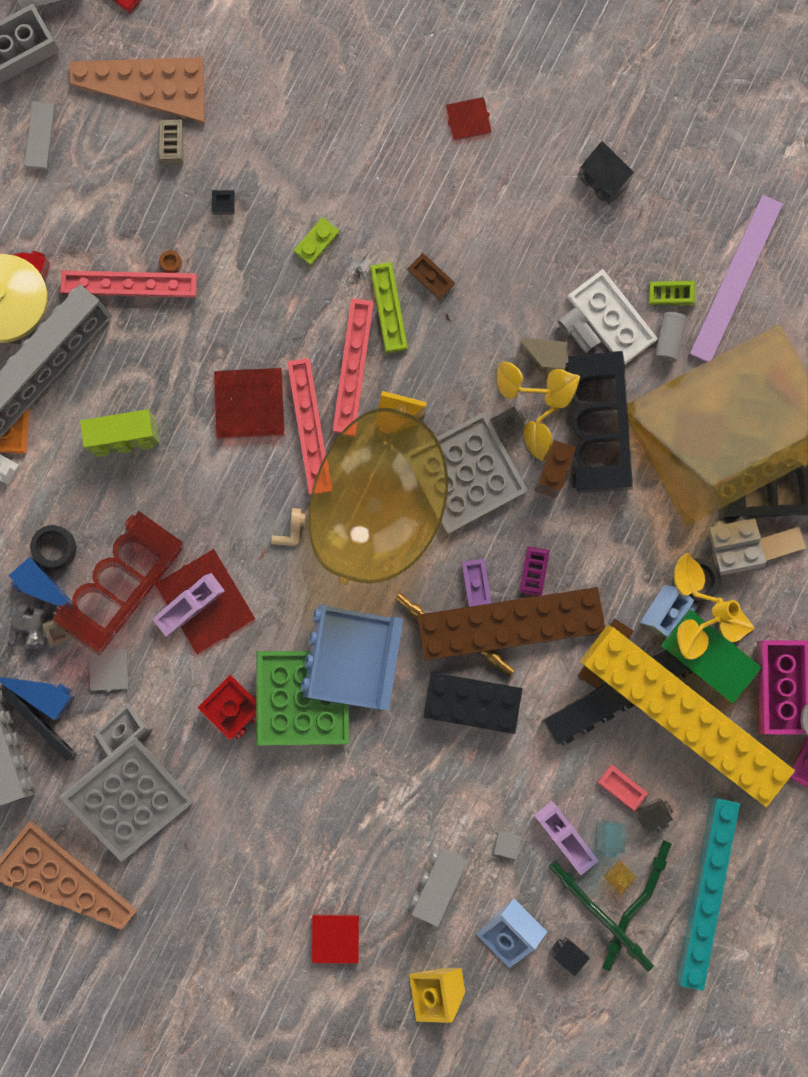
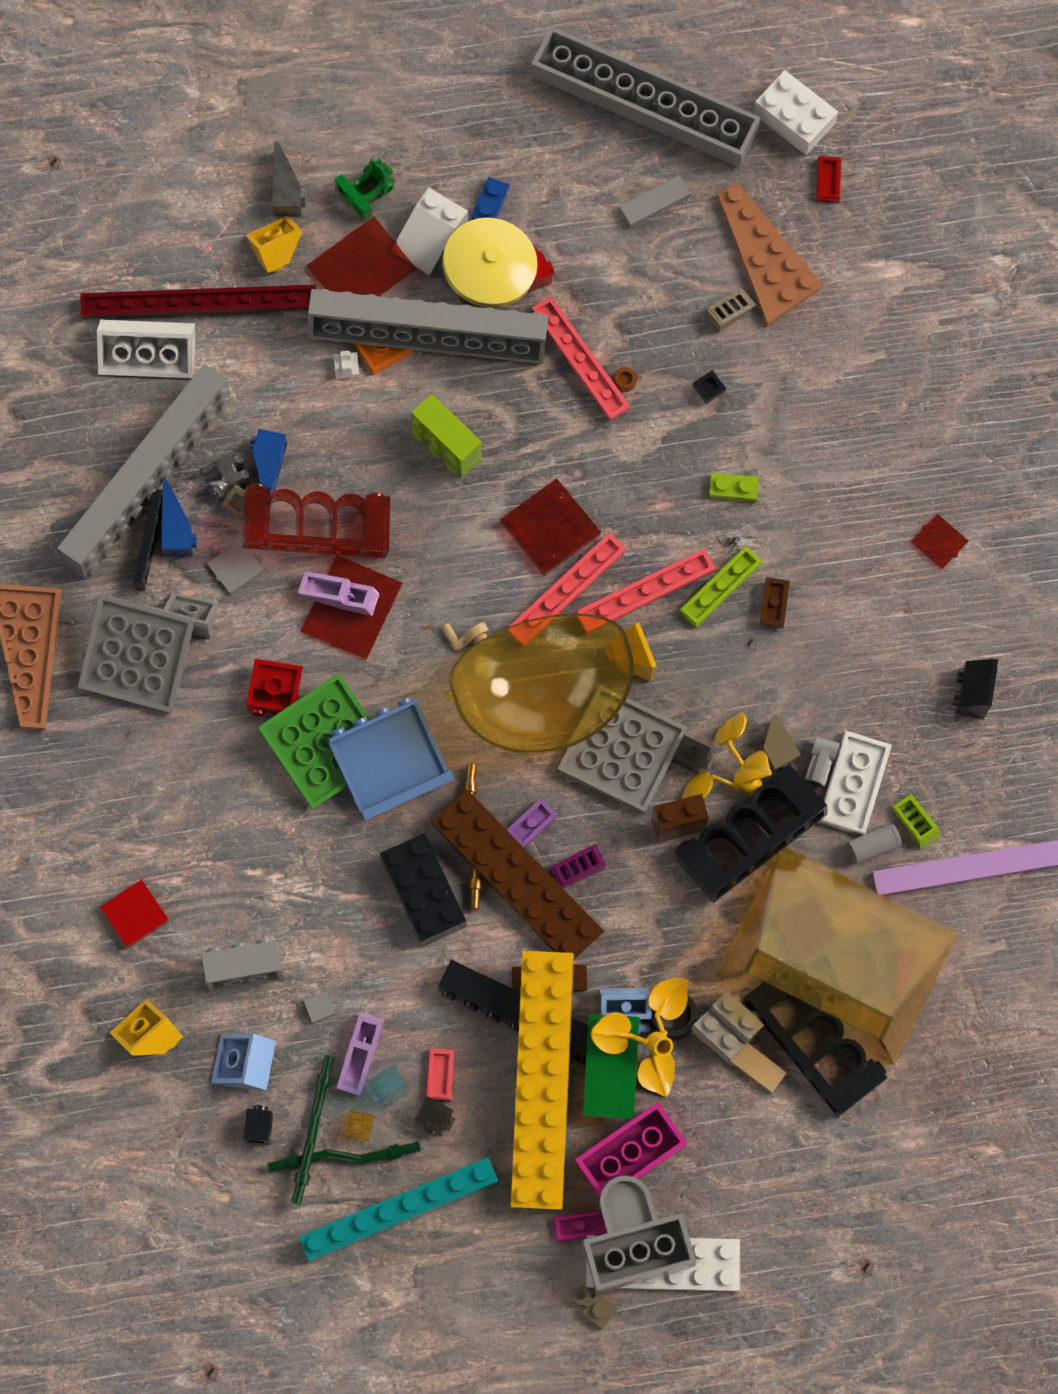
camera: 50 degrees right, 10 degrees down
(41, 534) = (308, 467): black tyre -> none

